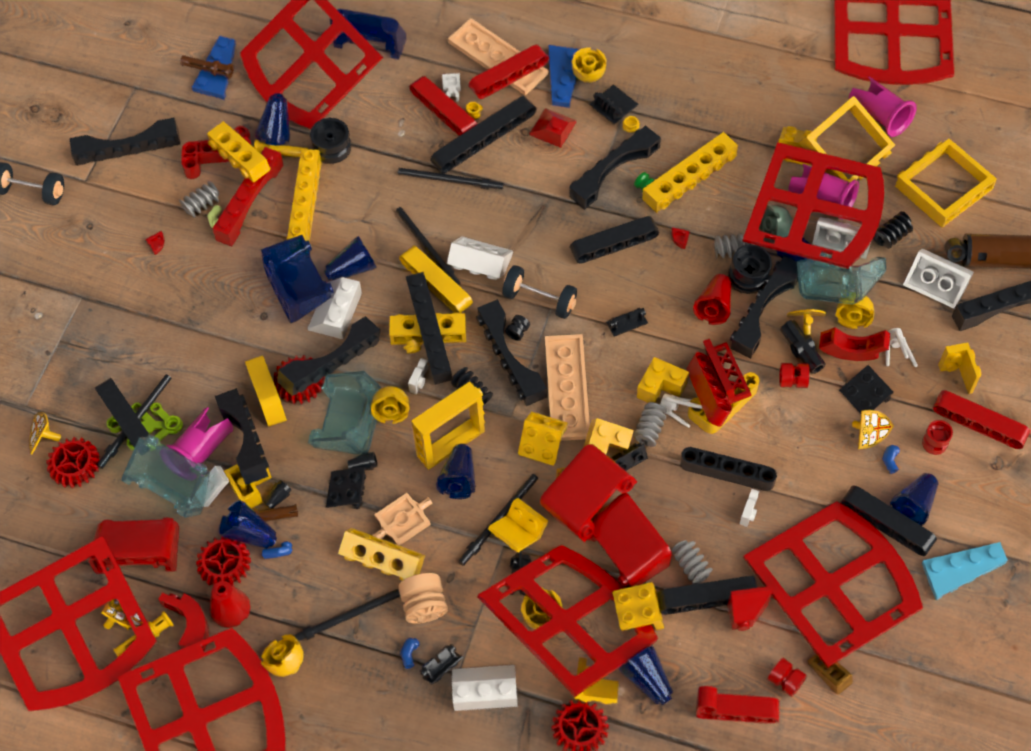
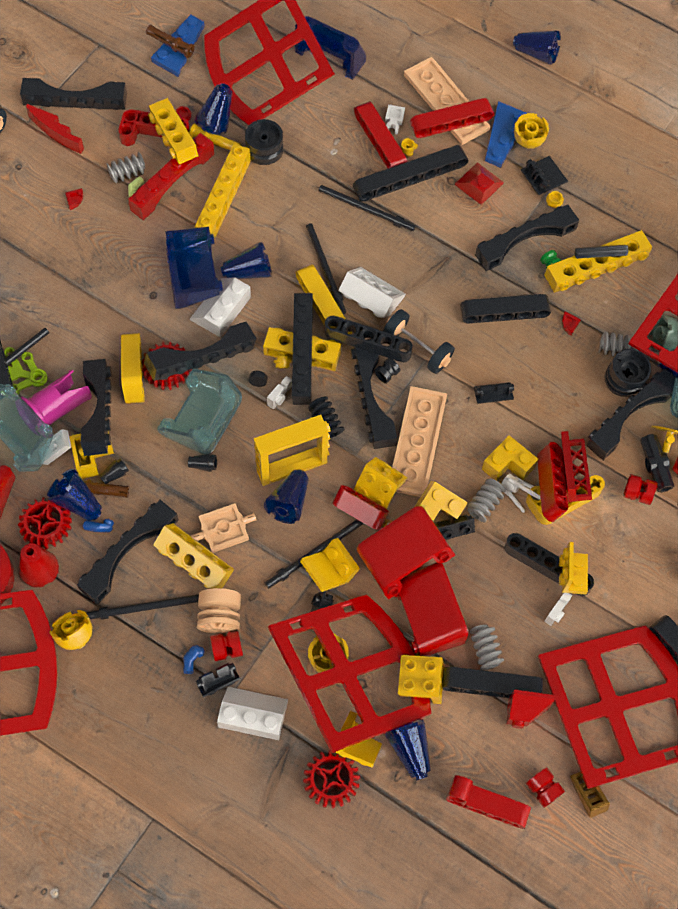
camera: 10 degrees right, 5 degrees up
(111, 178) = (53, 128): none -> red slope
(293, 604) = (98, 581): none -> black arch
(346, 488) = (180, 483): black hinge -> none
(390, 404) = (244, 413): yellow cylinder -> none
(393, 368) = (258, 378): none -> black tile
(439, 630) = (226, 645): none -> red wheel
(482, 297) = (361, 332): none -> black beam
(530, 463) = (360, 507): none -> beam
(690, 161) = (601, 251): none -> black axle
(714, 301) = (584, 395): red cone -> none
(754, 466) = (574, 571): none -> yellow bracket

